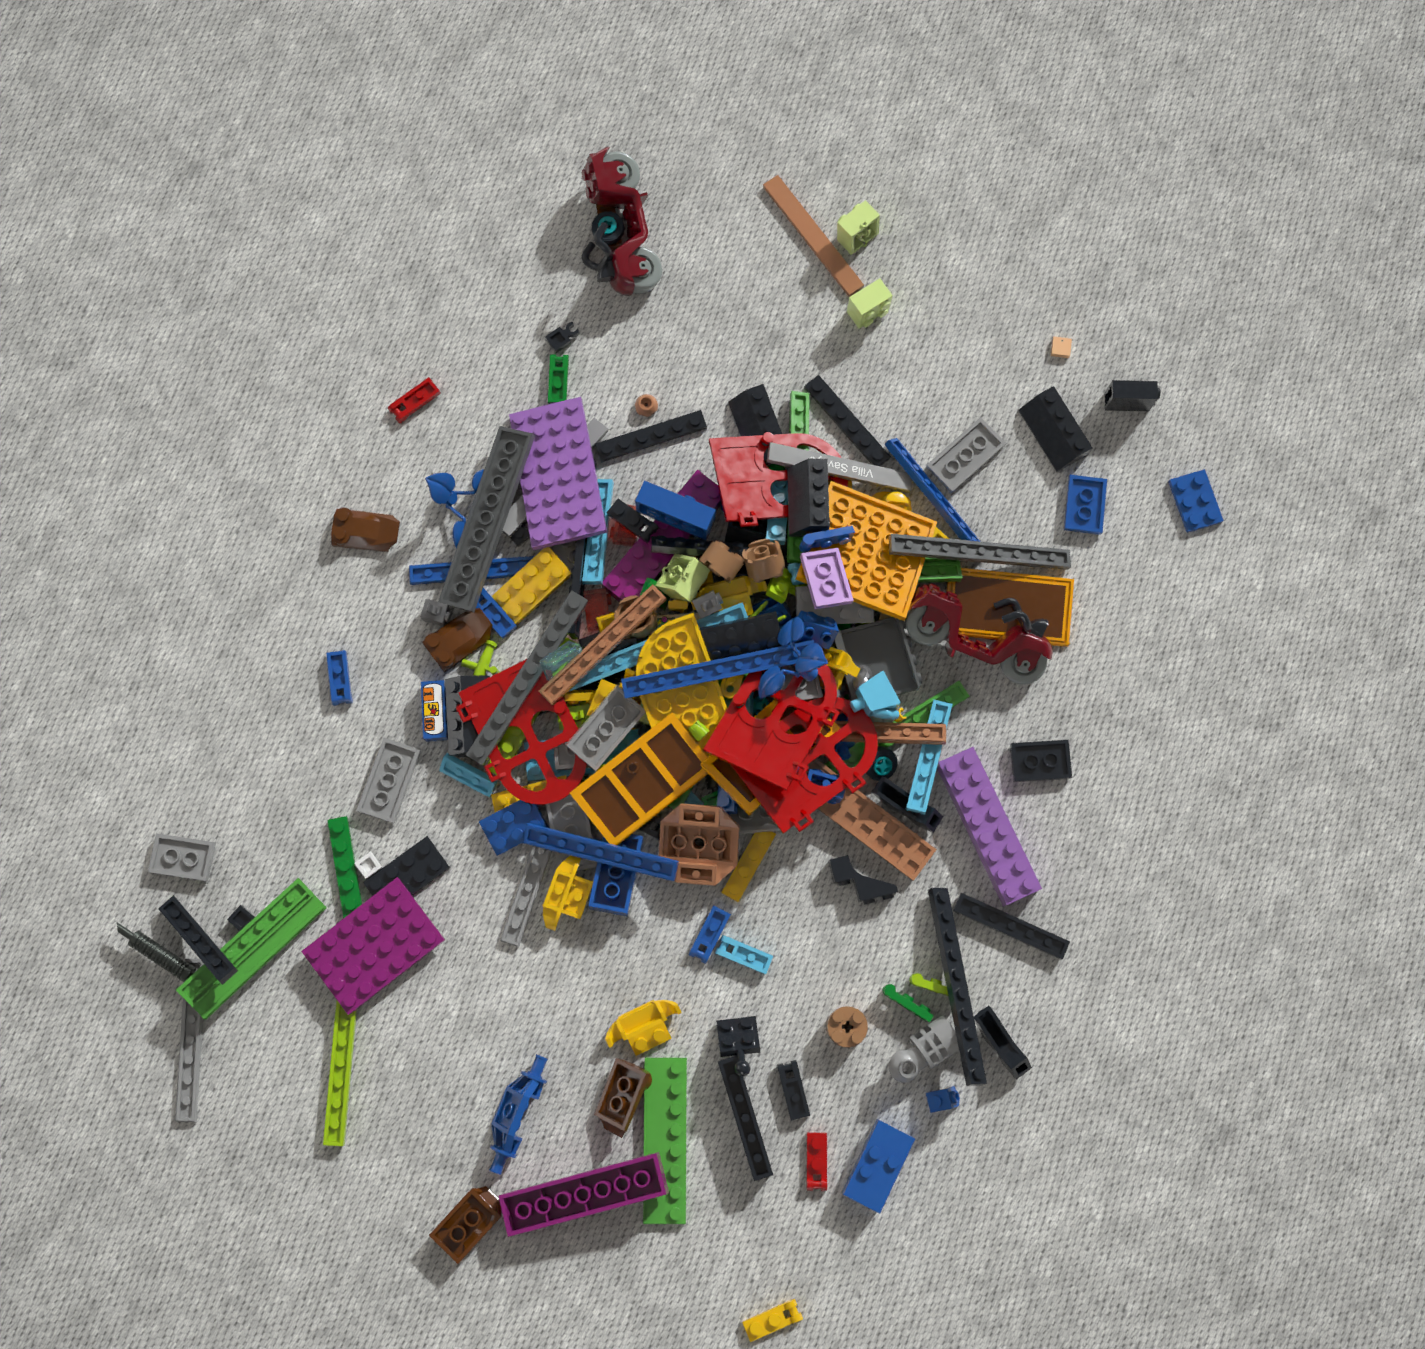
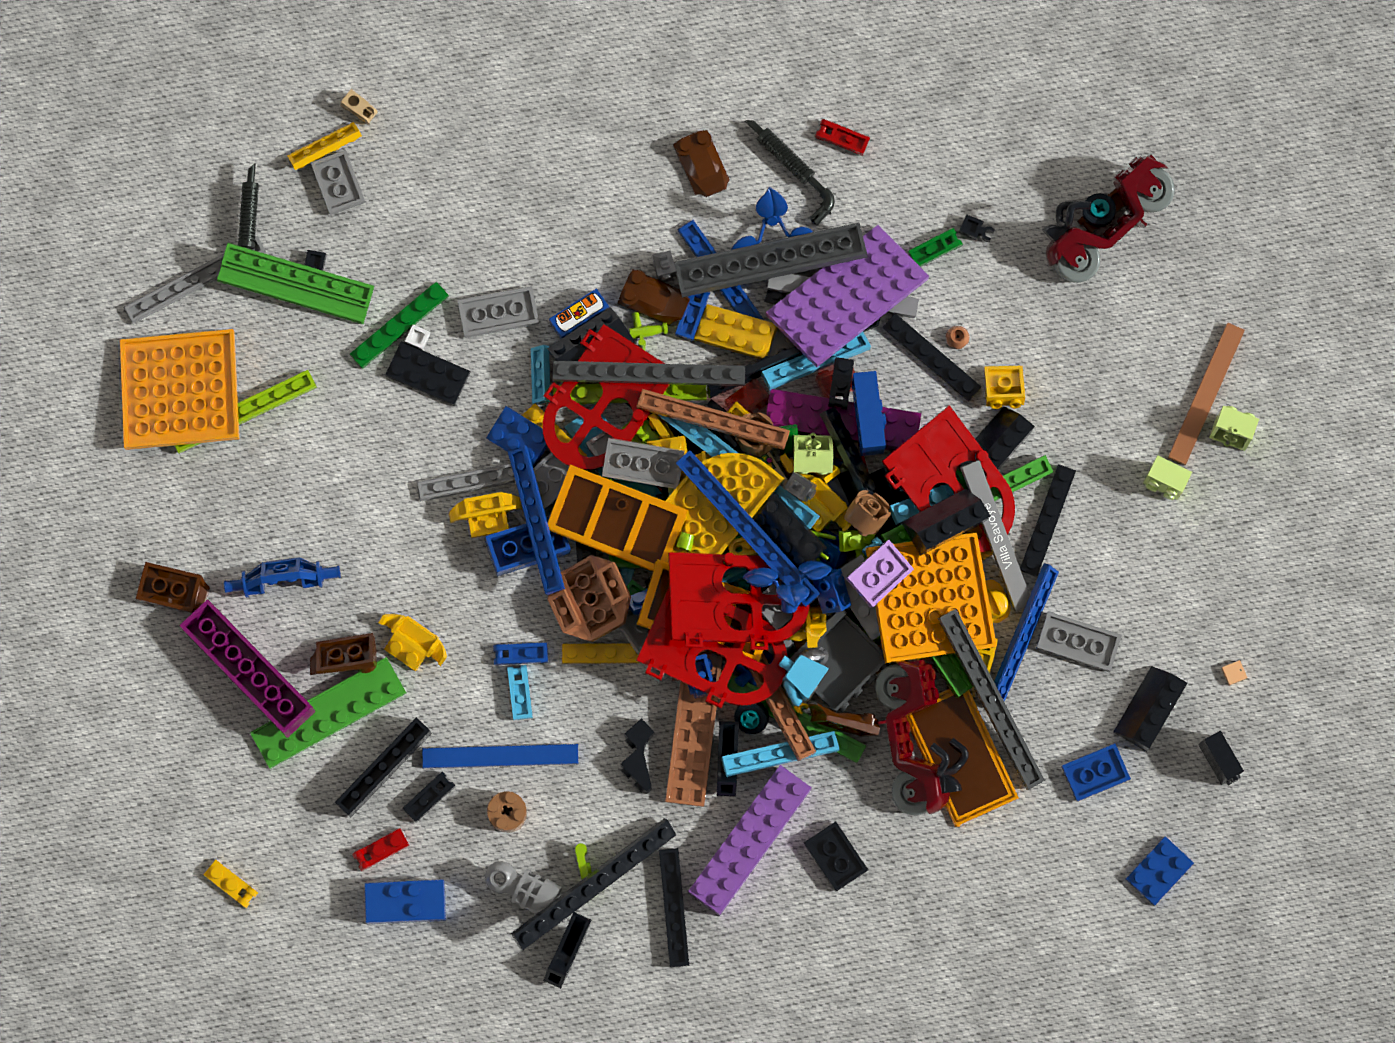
camera: 60 degrees right, 0 degrees up
(124, 799) = (358, 106): none -> tan leg
(140, 850) = (324, 146): none -> yellow plate
(198, 940) = (277, 235): black plate -> none
(285, 1112) = (179, 389): none -> light orange plate
(339, 677) = (562, 219): blue plate -> none
(373, 946) = (353, 380): magenta plate -> none
(421, 450) = (797, 167): none -> pearl dark grey piece
(559, 659) = (679, 389): clear light blue panel -> none
(712, 390) = (1004, 386): none -> yellow plate
(721, 561) = (844, 477): medium nougat brick -> none
(738, 1038) = (445, 724): black plate -> none
(791, 1004) = (500, 756): none -> blue tile
(826, 538) = (916, 555): blue plate -> none
(907, 1002) = (557, 852): green plate -> none
(937, 677) = (855, 724): none -> reddish brown slope
(943, 1099) = (492, 928): blue bracket -> none

